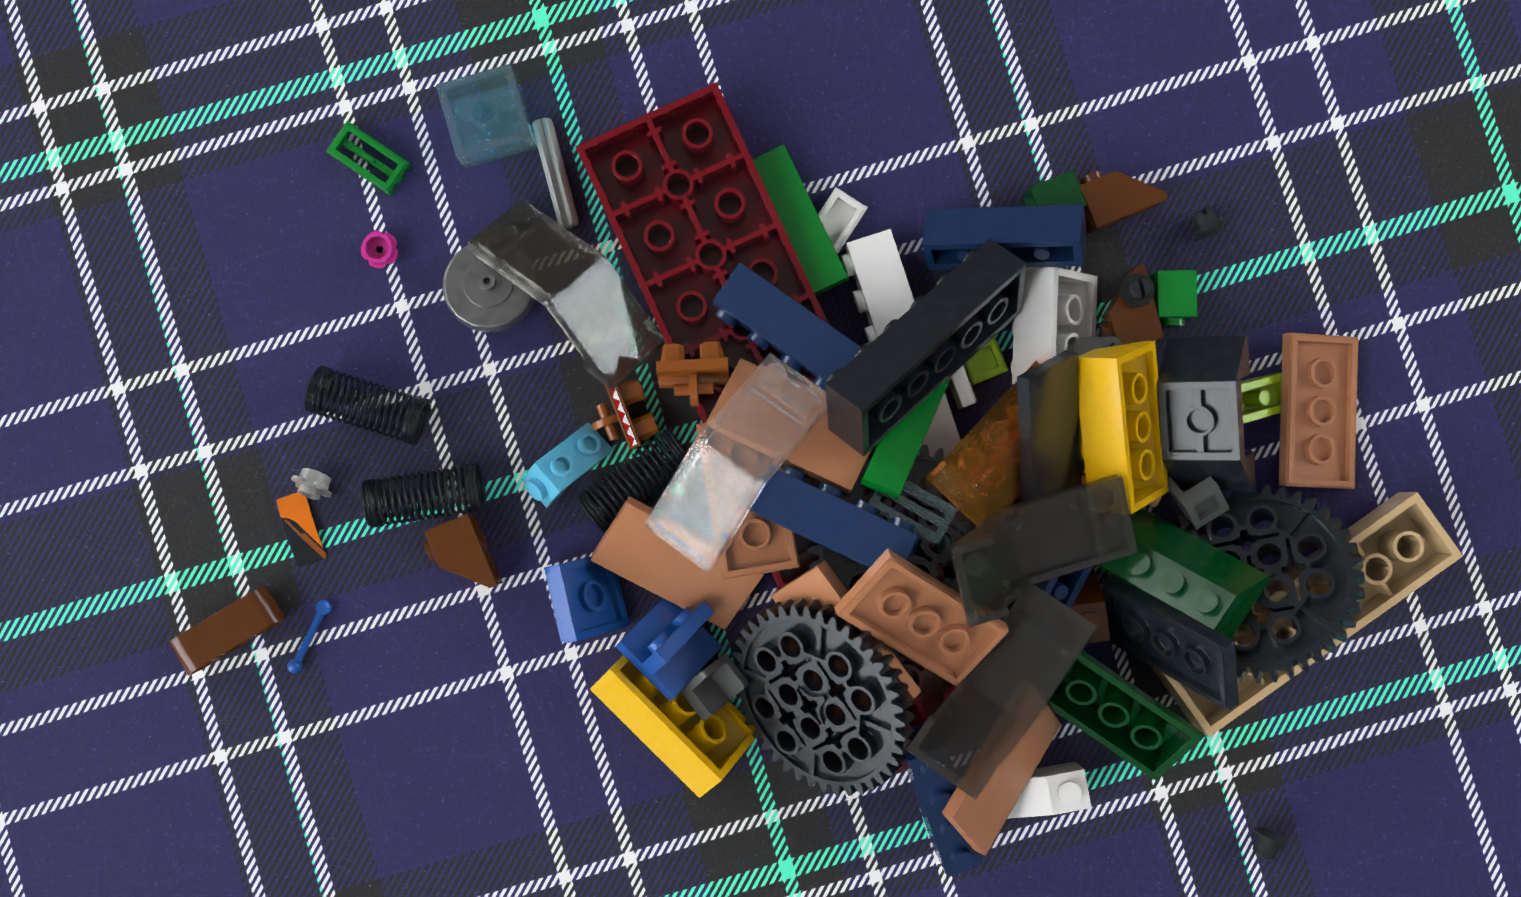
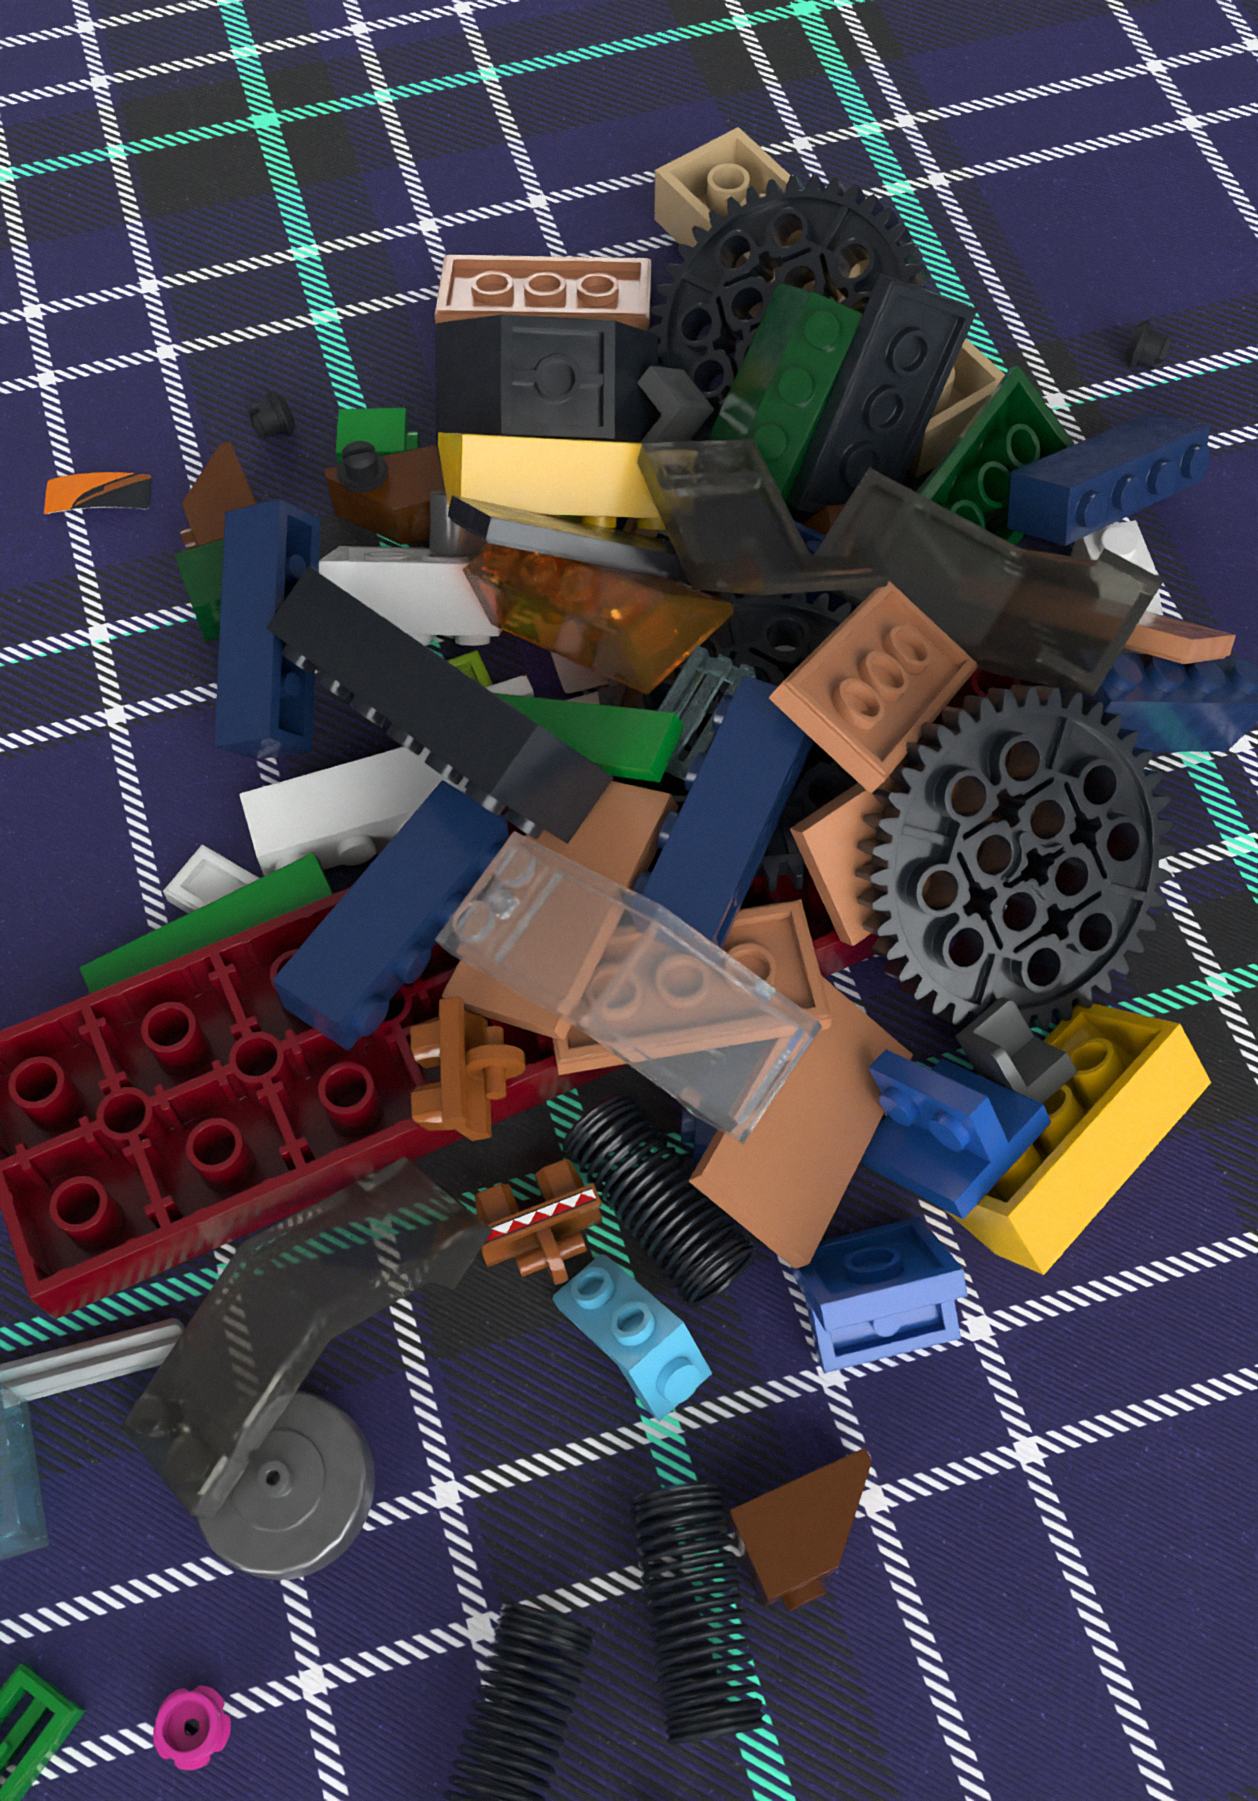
camera: 90 degrees left, 25 degrees down
(1126, 795) = (1107, 477): none -> dark blue brick
(1145, 109) = (98, 491): none -> sticker

